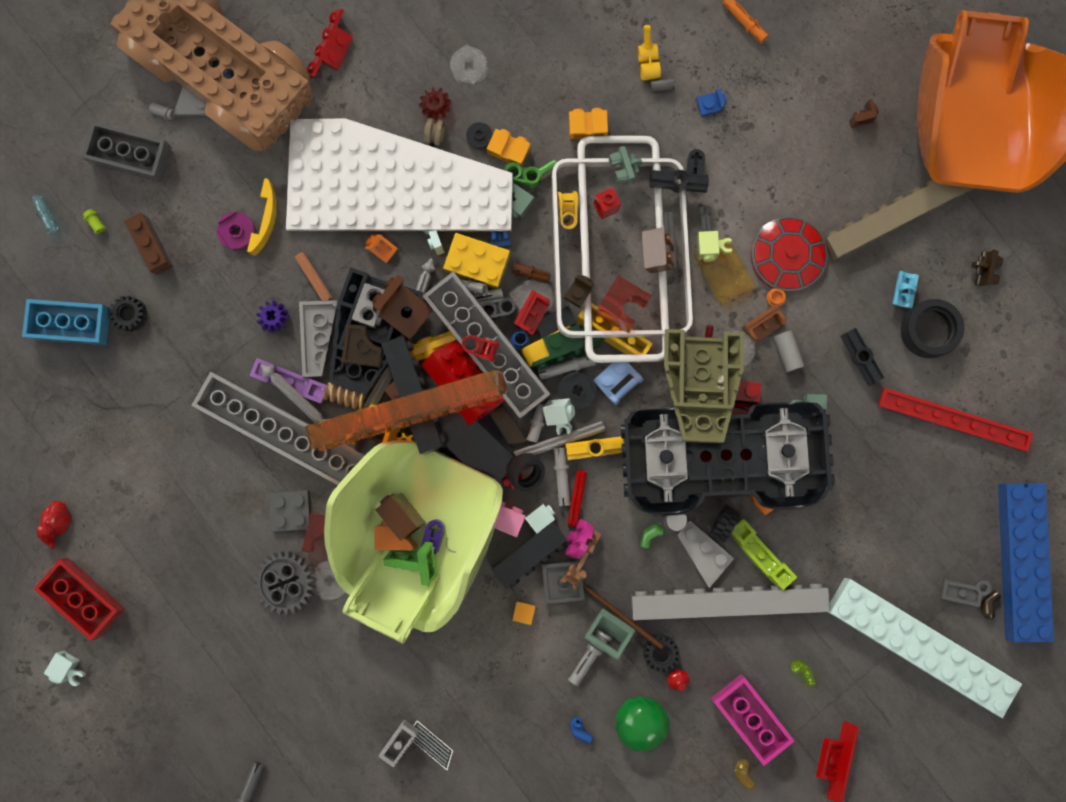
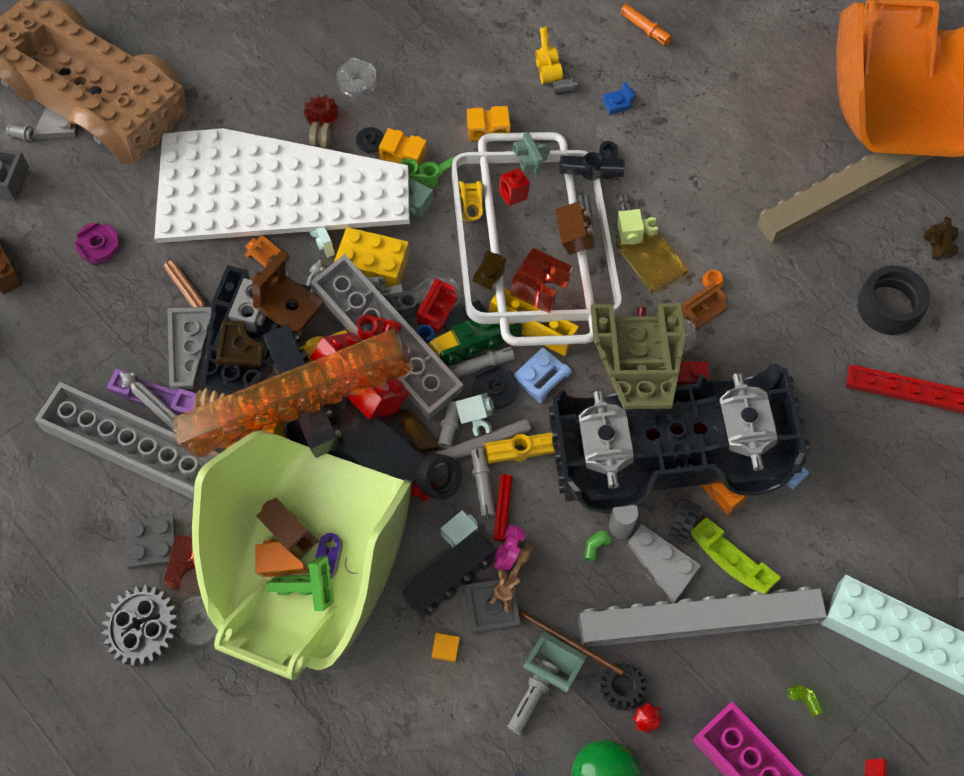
camera: 10 degrees left, 20 degrees down
(258, 241) = (124, 249): yellow slope -> none
(279, 313) = (136, 326): dark purple gear -> none
(333, 46) = (211, 65): red bracket -> none
(500, 238) = (397, 232): blue tile -> none
(510, 520) = (420, 535): bright pink brick -> none
(531, 272) = (434, 268): reddish brown axle -> none
(788, 351) = (734, 334): light grey brick -> none
(789, 254) = (721, 237): red dish -> none
(855, 345) = (828, 343): black piece -> none
(864, 116) = (783, 104): reddish brown bracket -> none
(905, 281) = (853, 257): medium azure hips -> none

